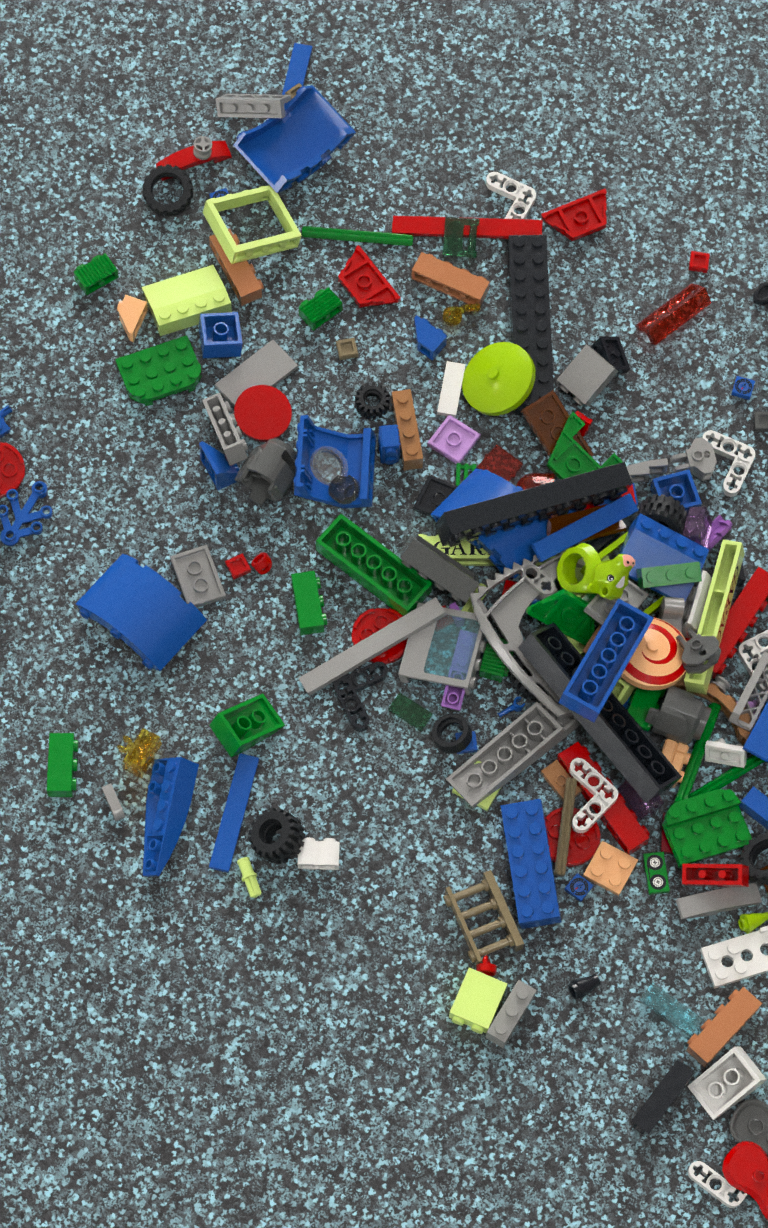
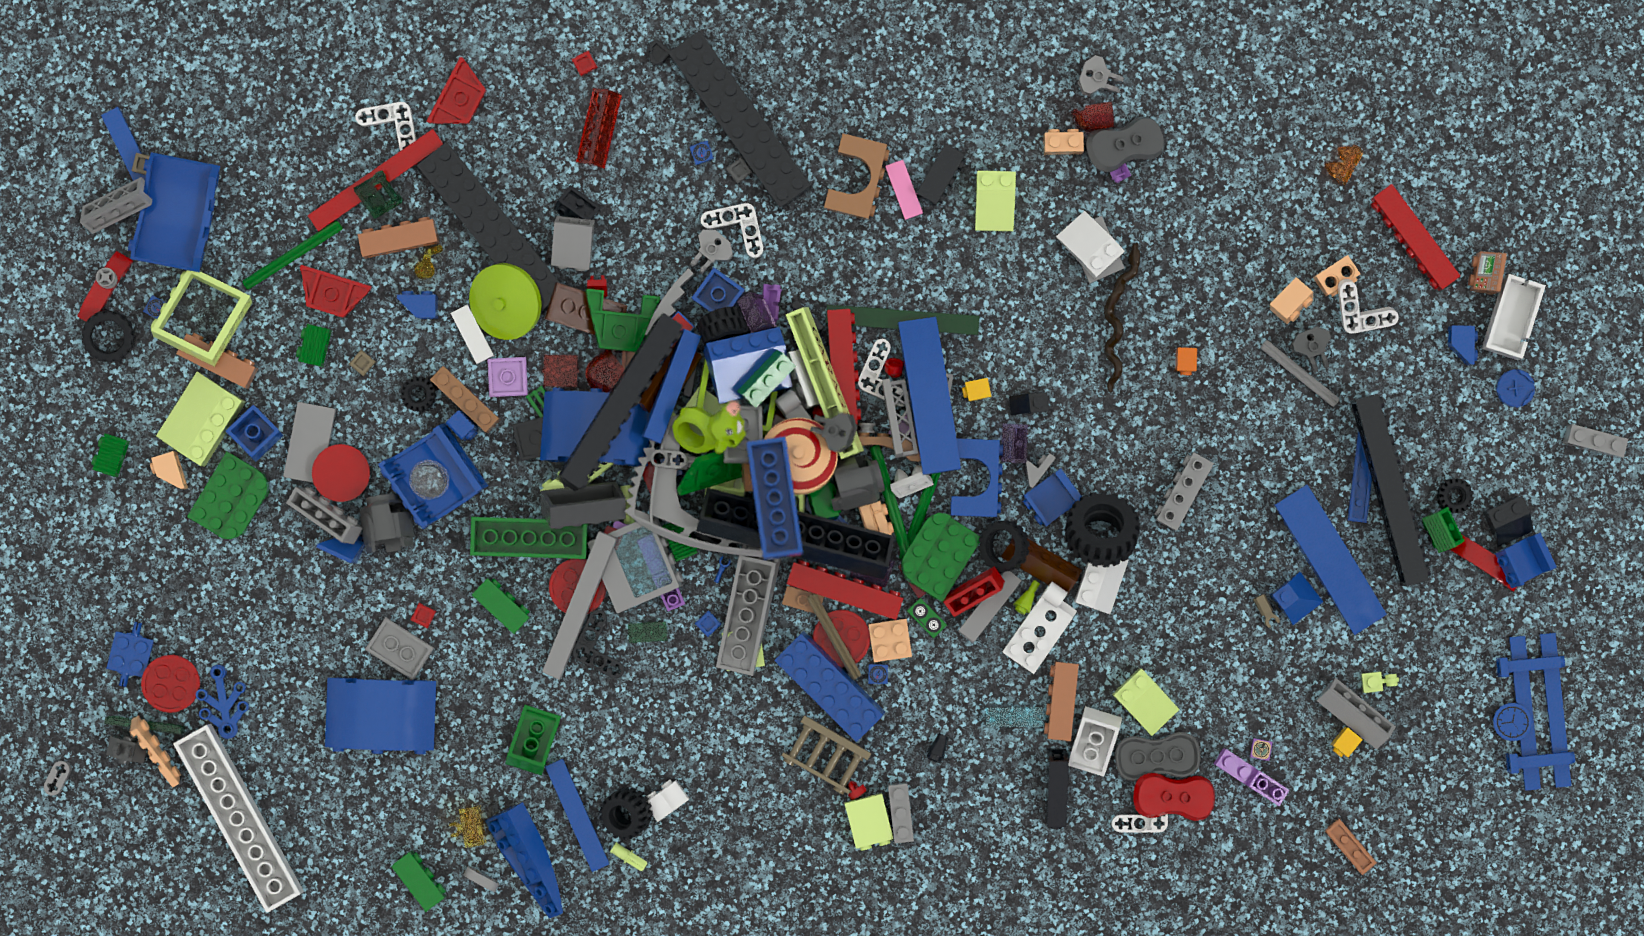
camera: 30 degrees left, 20 degrees up
(260, 562) = (440, 599): red tile -> none
(344, 489) = (457, 493): clear smoke hair -> none
(445, 721) = (679, 627): black tyre -> none
(598, 798) = (843, 598): white beam -> none

